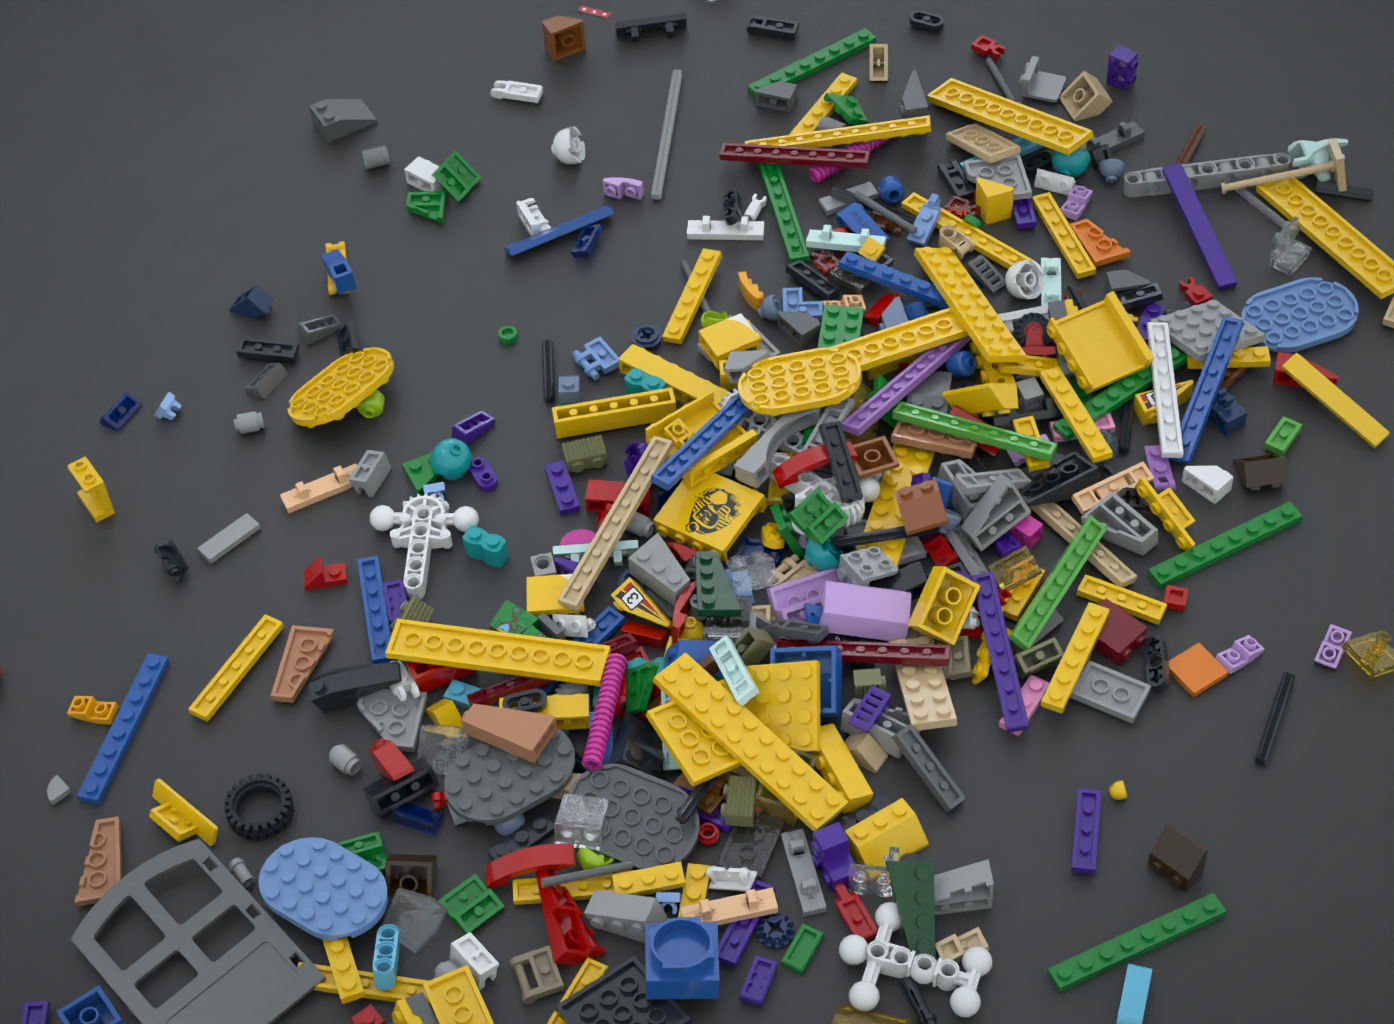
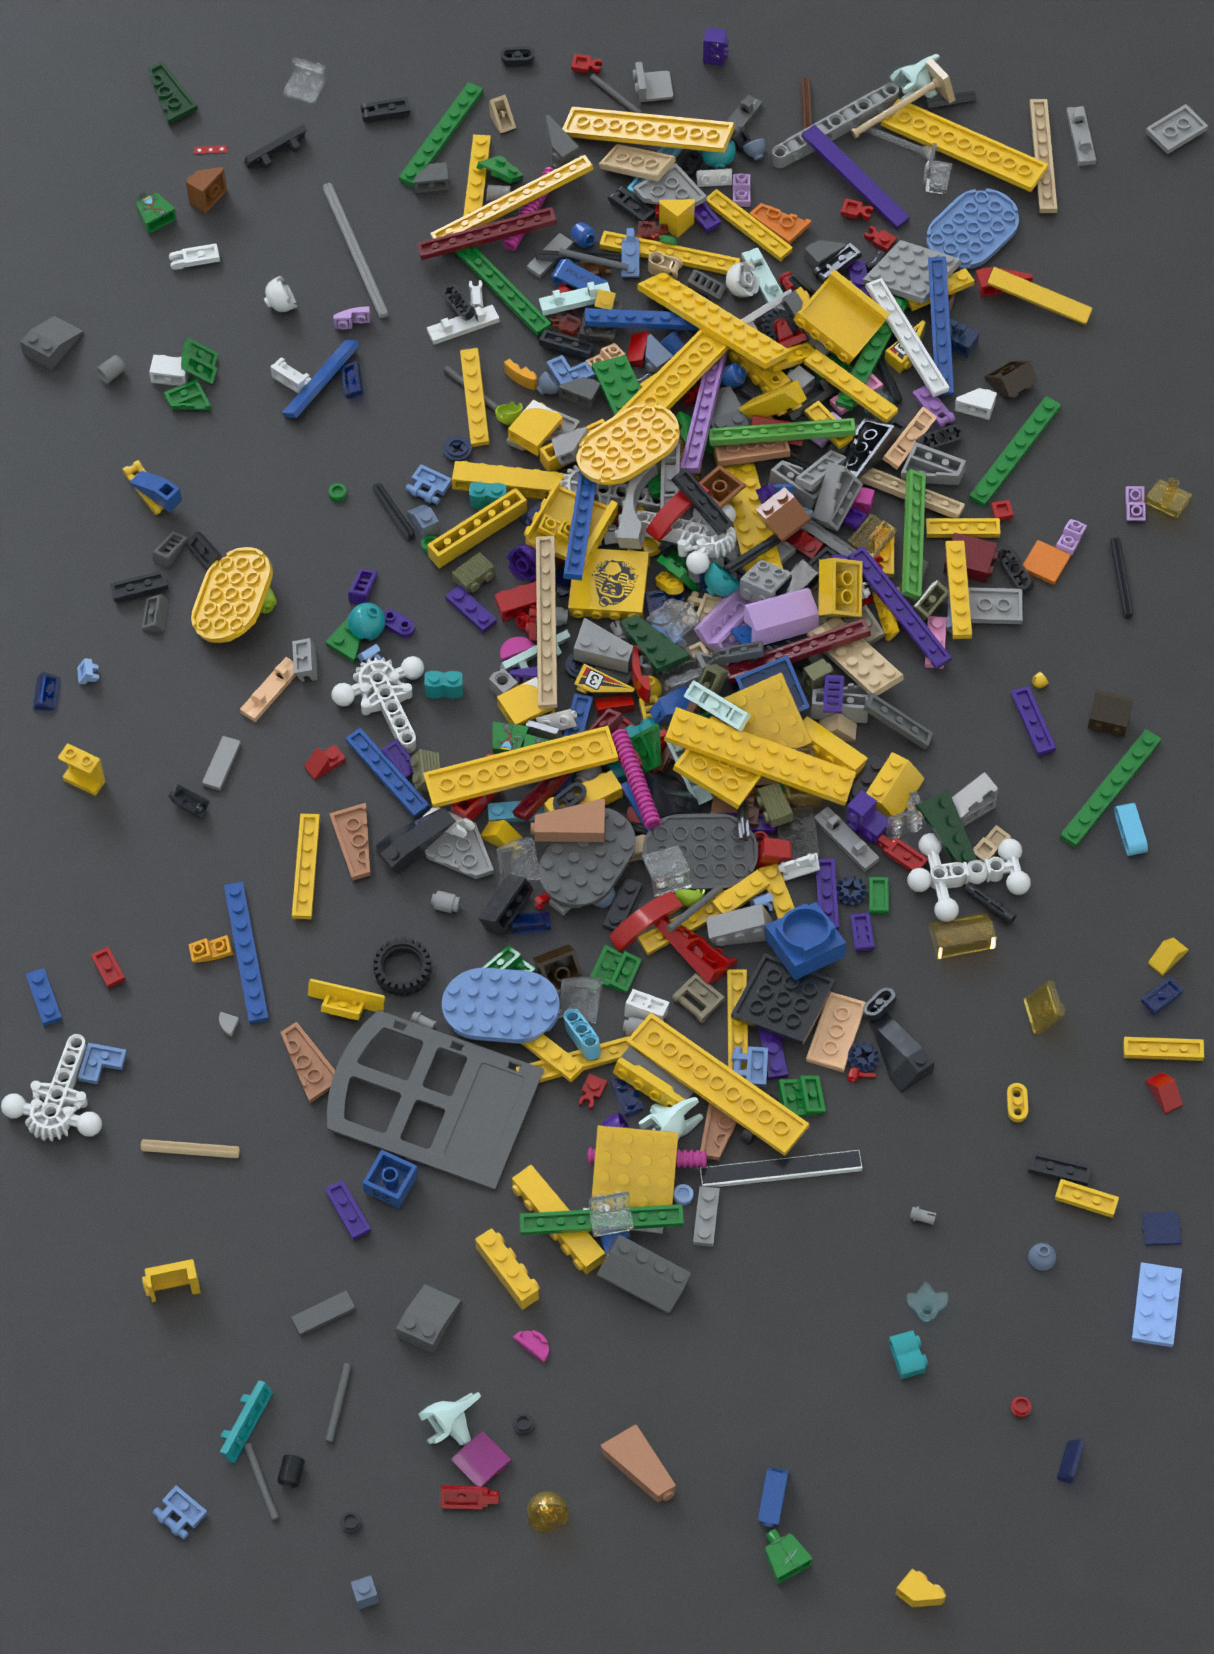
camera: 30 degrees left, 10 degrees up
(249, 422) = (170, 657): light grey brick -> none
(252, 303) = (95, 549): dark blue slope -> none
(389, 759) = (488, 887): red slope -> none
(506, 43) = (154, 211): none -> green torso
(681, 552) = (611, 626): red slope -> none
(711, 851) = (773, 851): none -> red slope
(734, 907) = (814, 887): light nougat hinge -> none
(817, 516) = (710, 555): green slope -> none
(1085, 97) = (696, 86): tan slope -> none
(1170, 511) = (964, 441): yellow bracket -> none
(1182, 256) = (853, 209): none -> red plate
(1283, 436) = (1013, 342): bright green plate -> none

